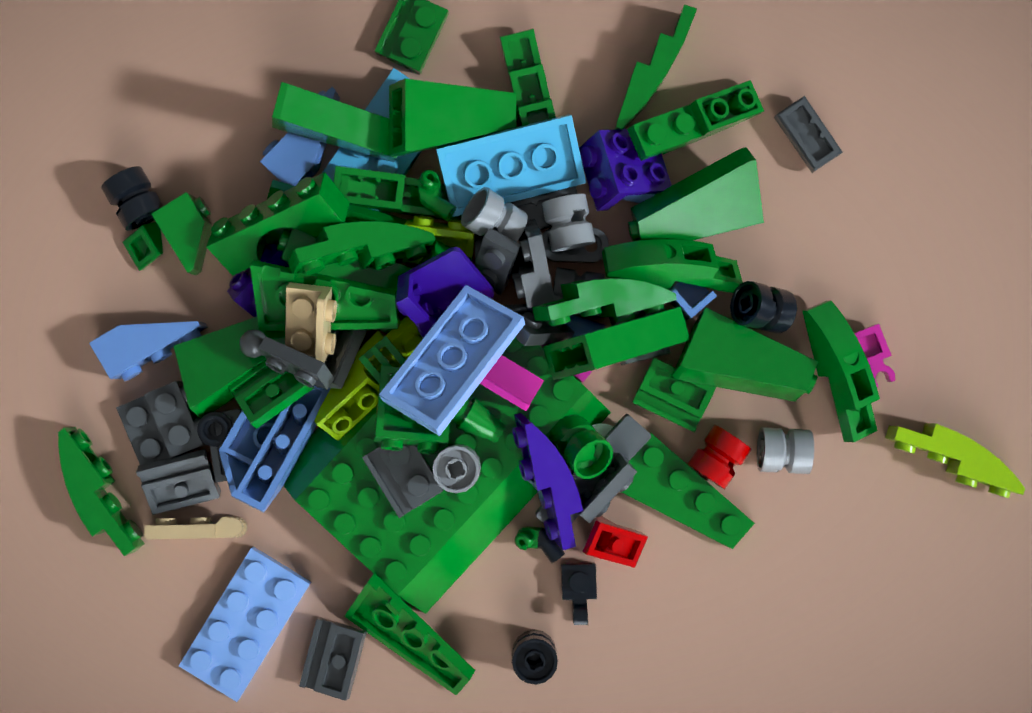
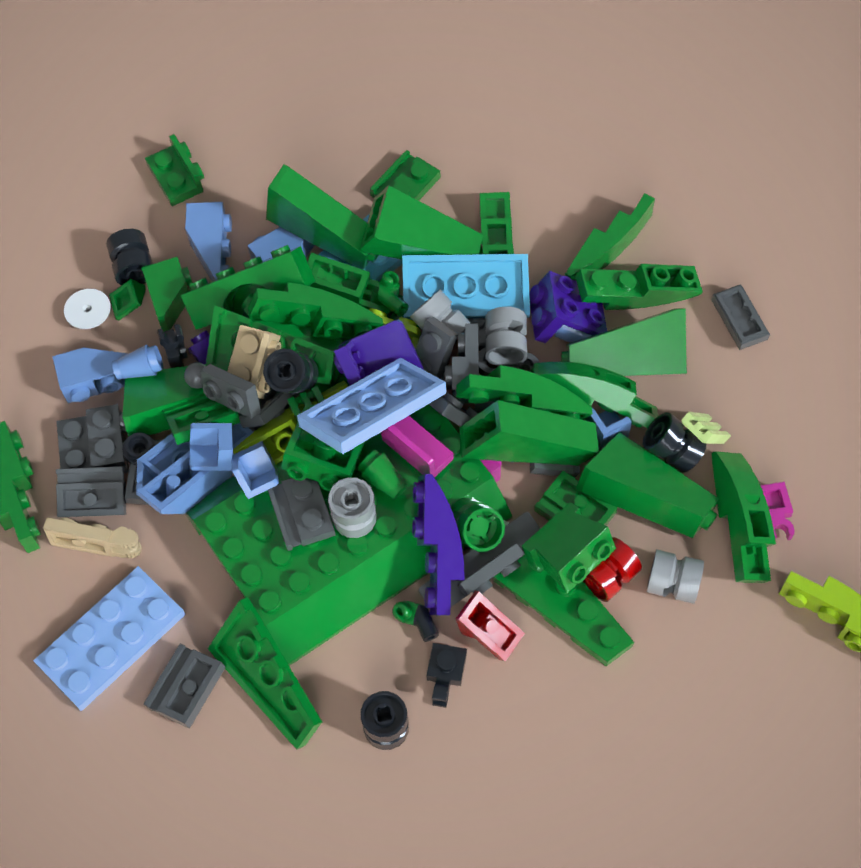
camera: 20 degrees right, 25 degrees down
(104, 267) = (87, 308): none -> white piece
(147, 72) = (175, 172): none -> green bracket
(186, 337) = (139, 363): none -> medium blue cone
(209, 148) = (207, 235): none -> medium blue slope
(214, 300) = (174, 345): none -> black plate
(293, 427) = (211, 446): none -> medium blue panel
(346, 444) = (255, 470): none -> medium blue panel
(355, 333) = (290, 371): none -> black wheel
(680, 453) = (569, 547): none -> green hips
(798, 277) = (703, 429): none -> yellowish green tile

